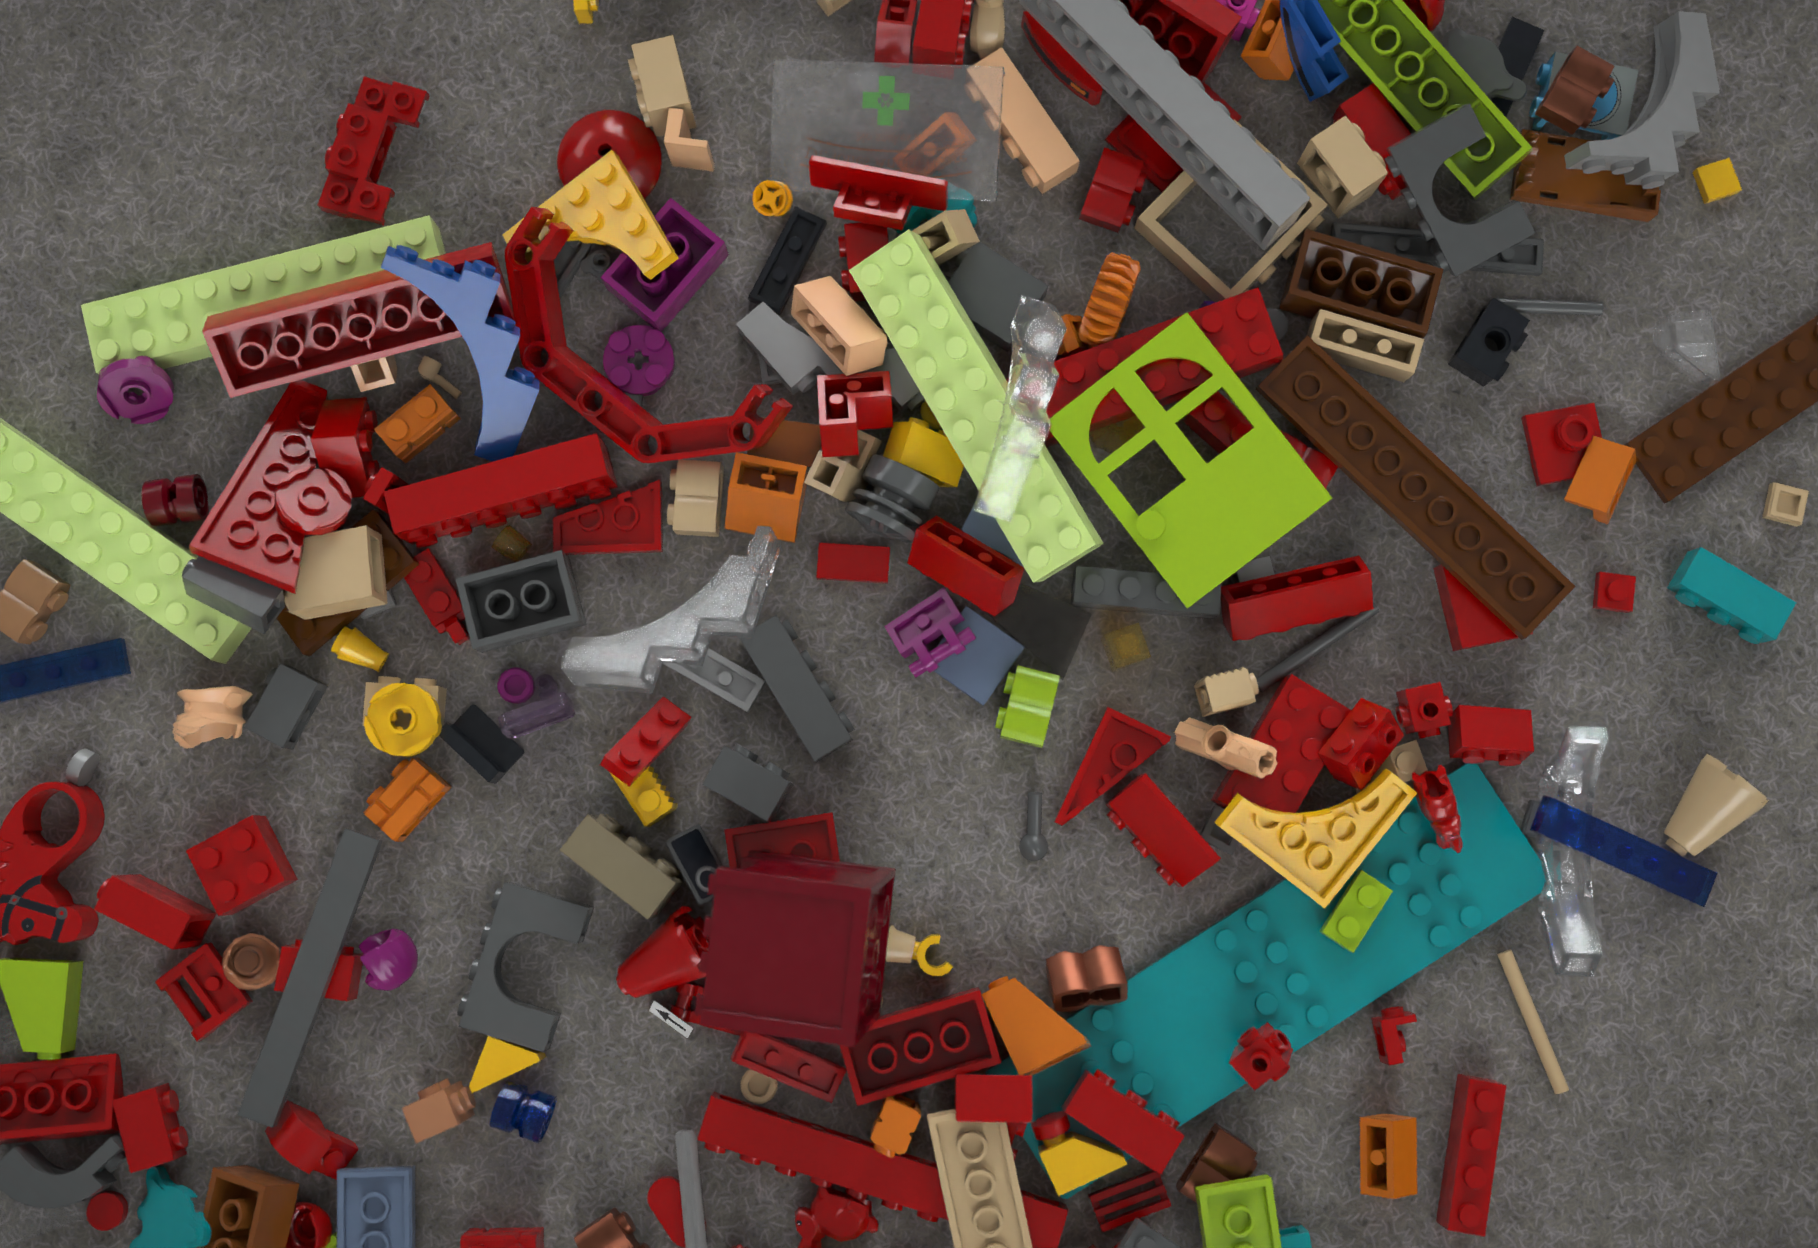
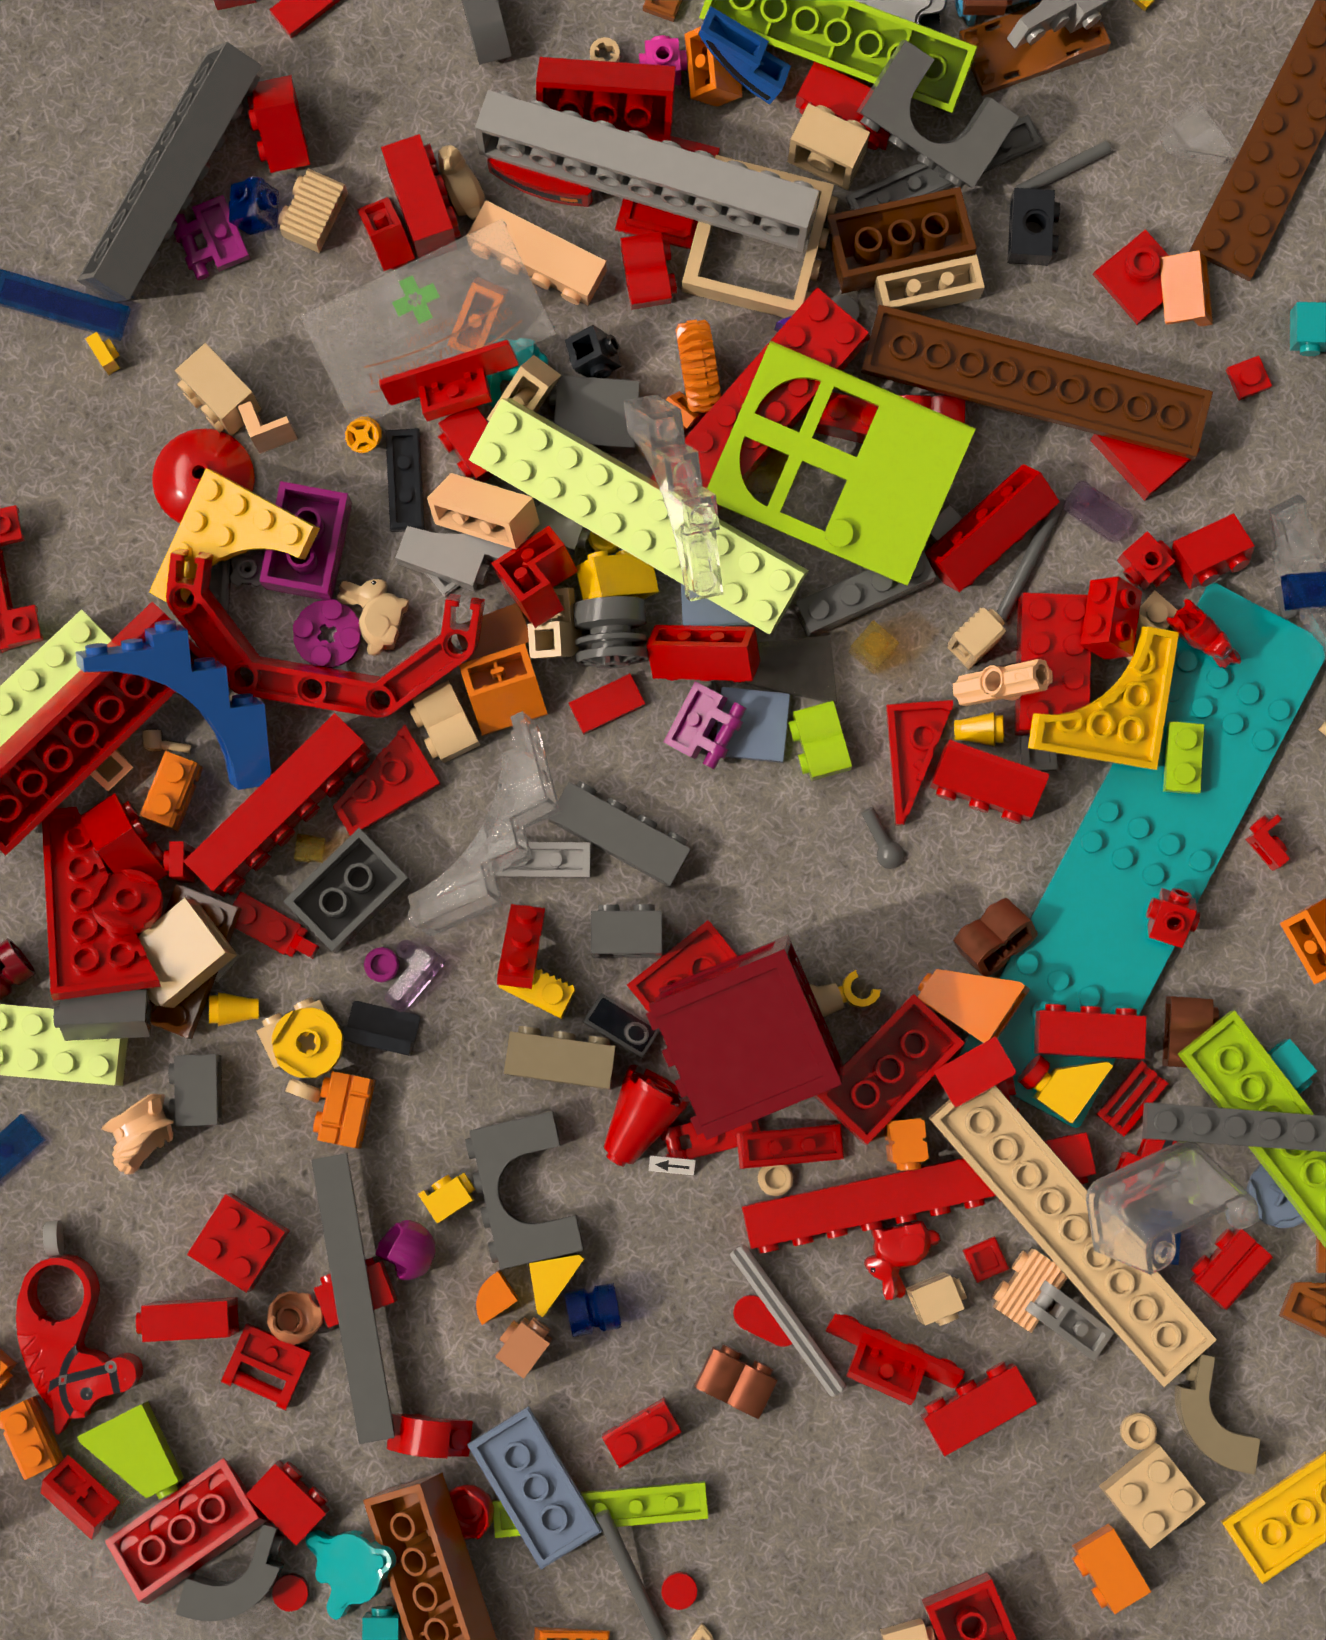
camera: 30 degrees left, 0 degrees up
(380, 761) = (303, 1090): none -> tan tile
(441, 1048) = (494, 1297): none -> orange brick
(452, 932) = (448, 1196): none -> yellow brick
(695, 369) = (380, 612): none -> tan animal
(1021, 237) = (593, 352): none -> black brick
(1182, 778) = (981, 729): none -> yellow cone
(1403, 638) = (1098, 512): none -> piece

